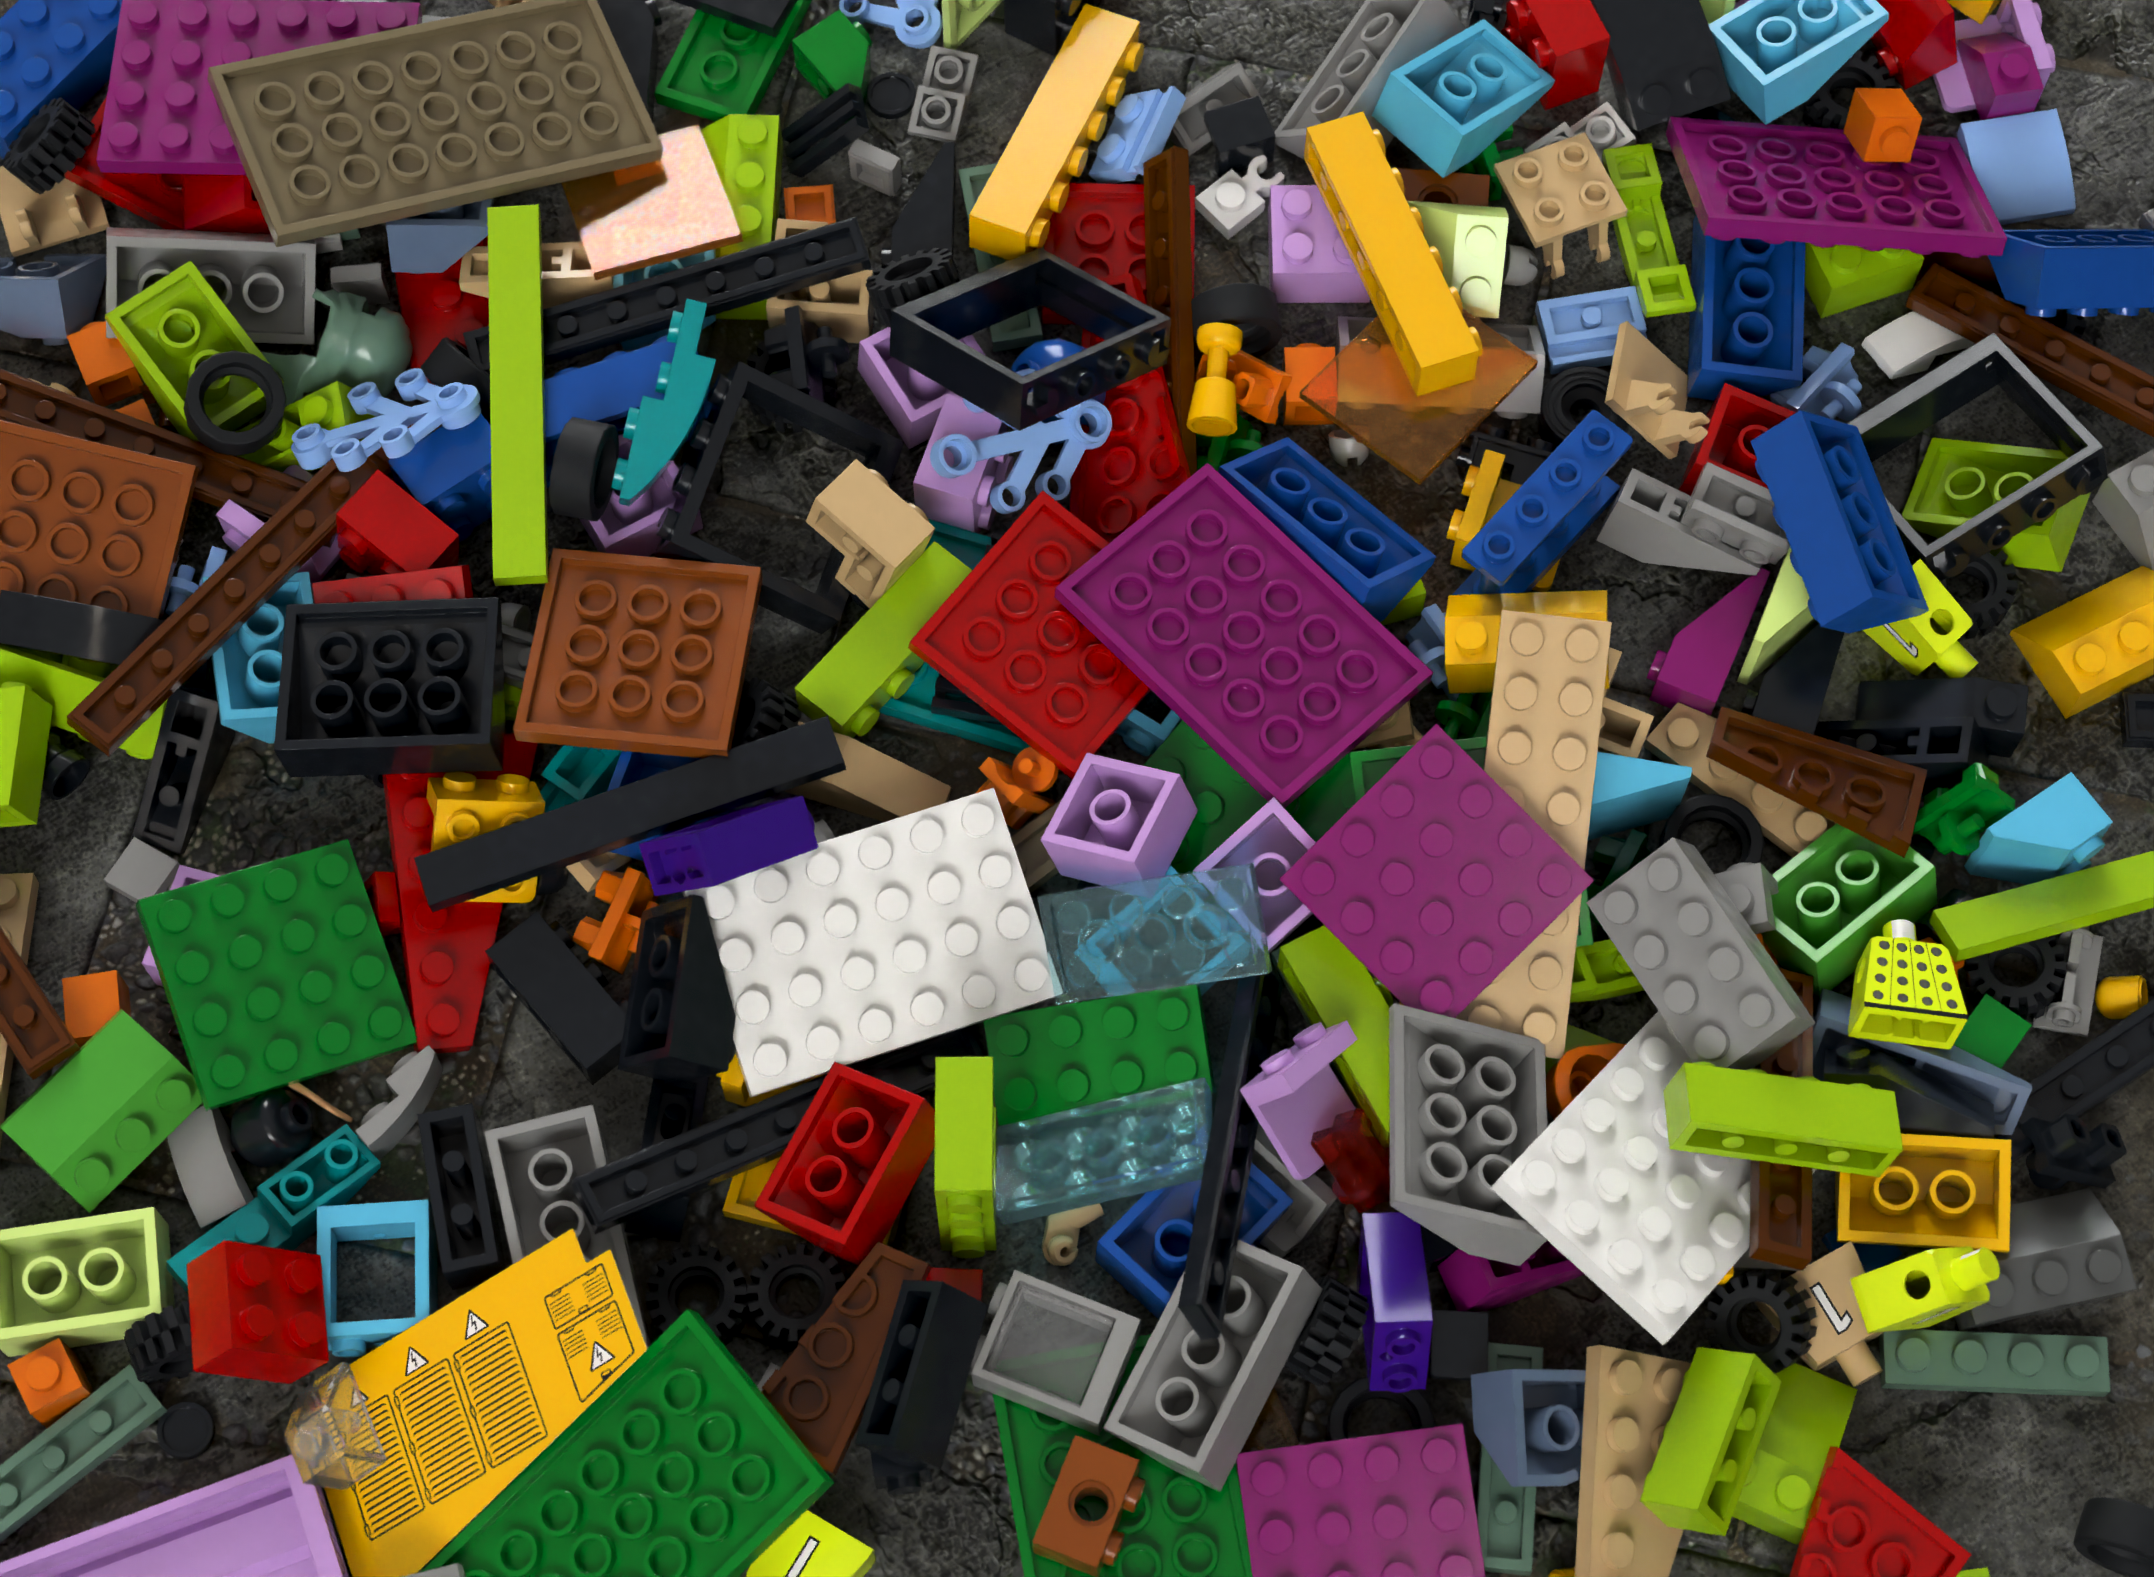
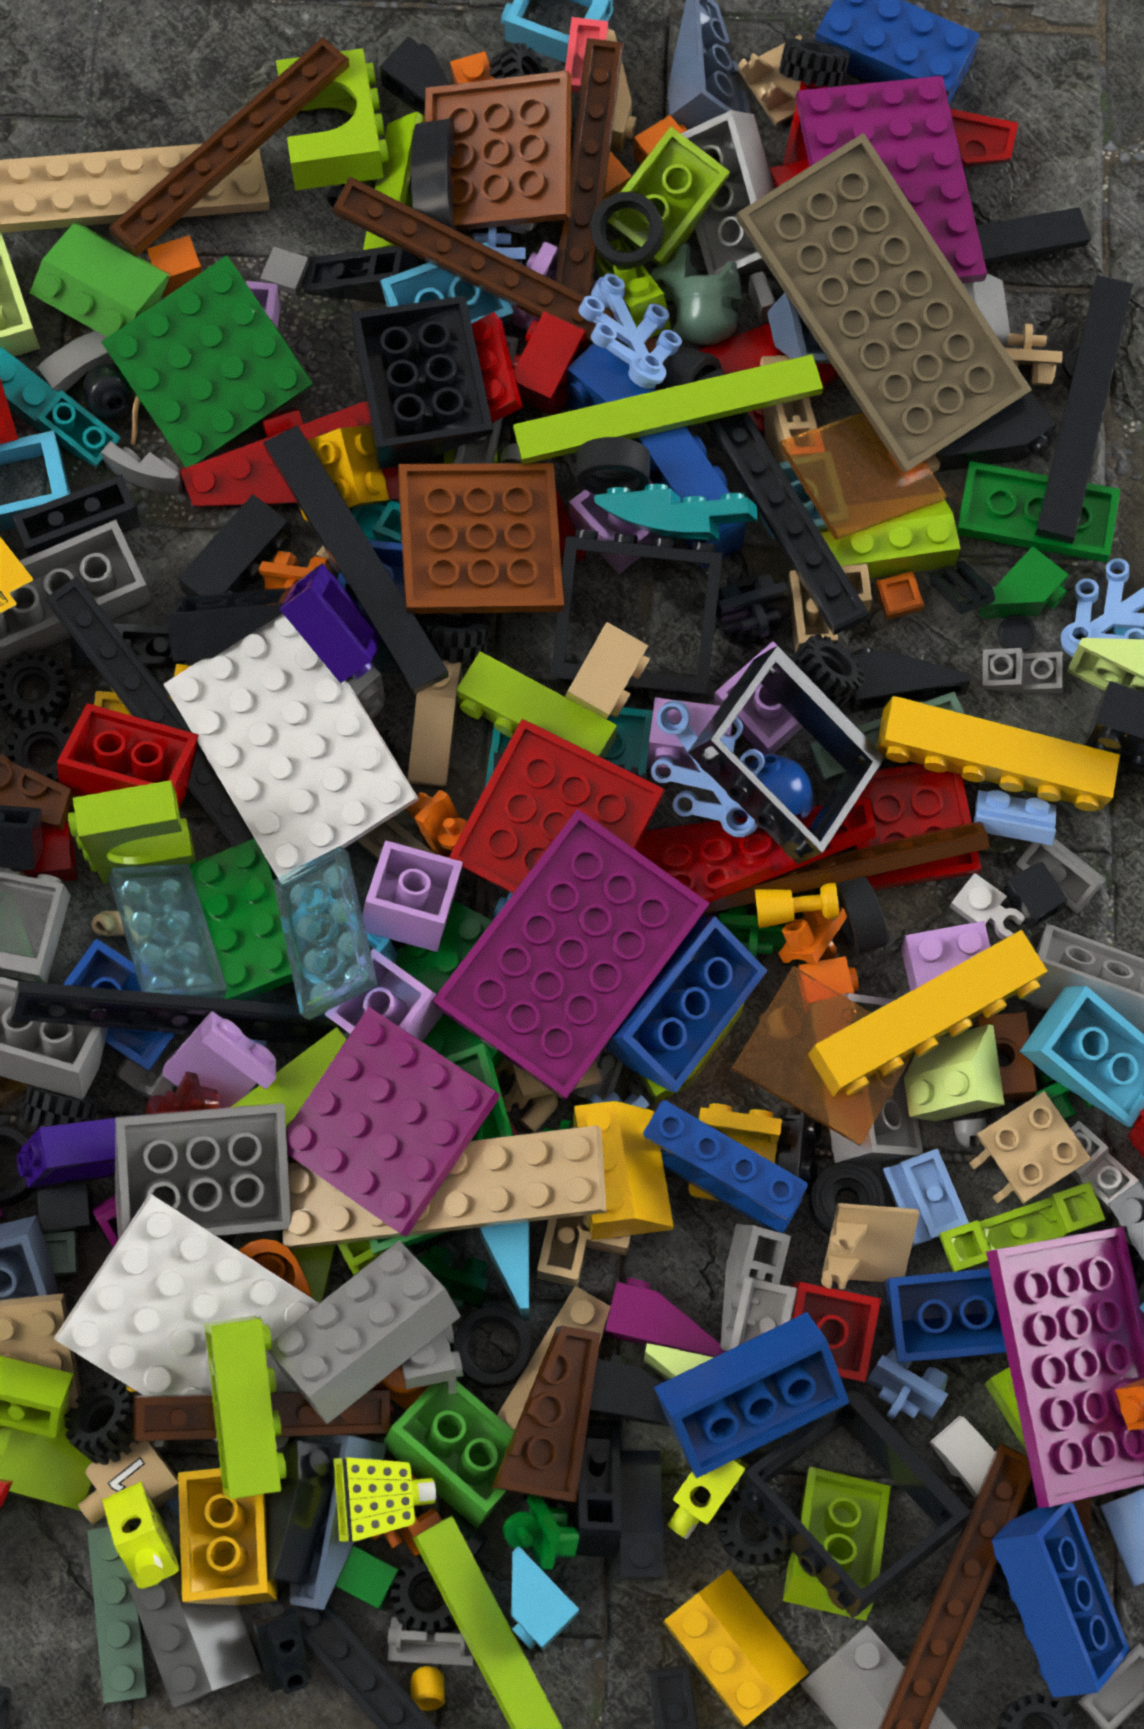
camera: 80 degrees right, 5 degrees up
(875, 167) = (942, 631): light grey tile -> none

